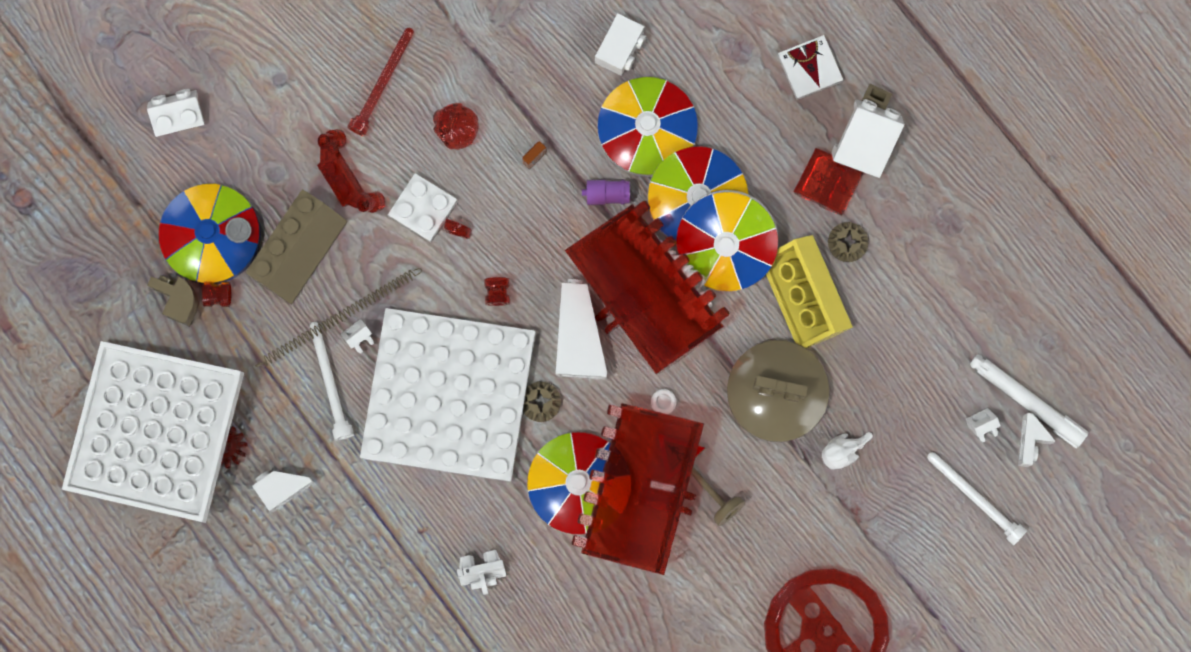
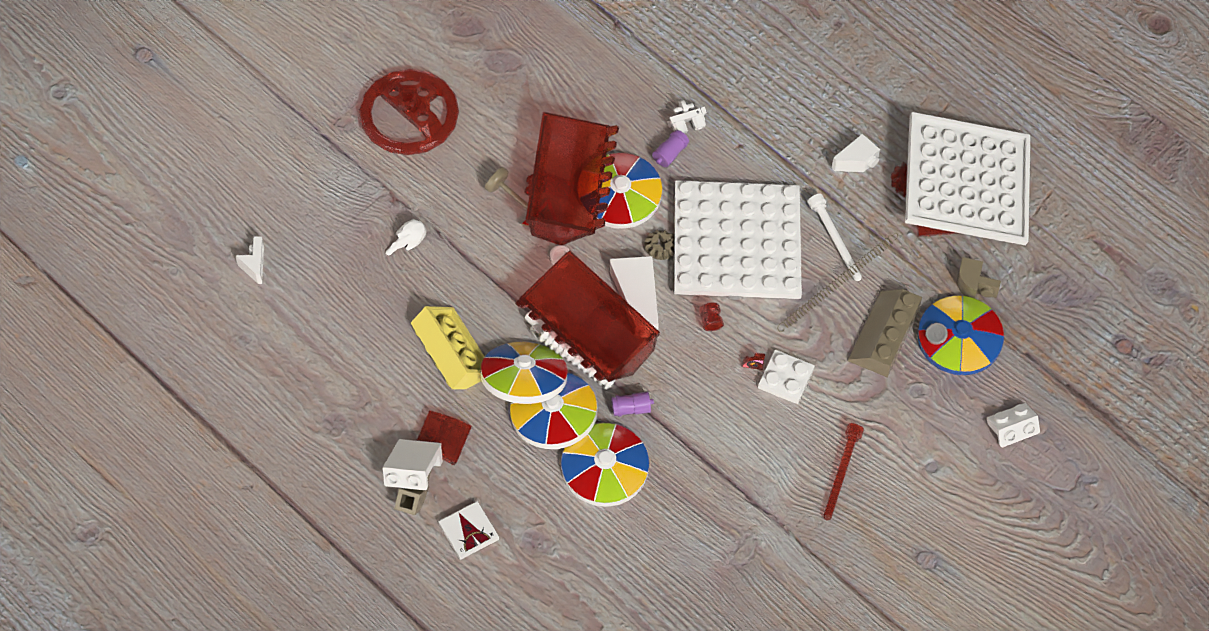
camera: 170 degrees right, 20 degrees down
(216, 294) = (942, 287): clear red wheel -> none
(342, 178) = (858, 387): clear red plate -> none
(356, 334) = (821, 271): white tile -> none
(456, 125) = (770, 440): clear red hair -> none
(508, 530) = (669, 150): none -> medium lavender piece
(534, 155) = (699, 425): dark orange tile -> none
(620, 45) = (639, 524): white brick -> none
(778, 391) = (467, 272): dark tan bracket -> none
(839, 249) = (429, 397): dark tan gear -> none
(983, 423) = (295, 268): white tile -> none
(1012, 530) = (265, 195): white piece -> none
(1062, 426) = (258, 291): white piece -> none

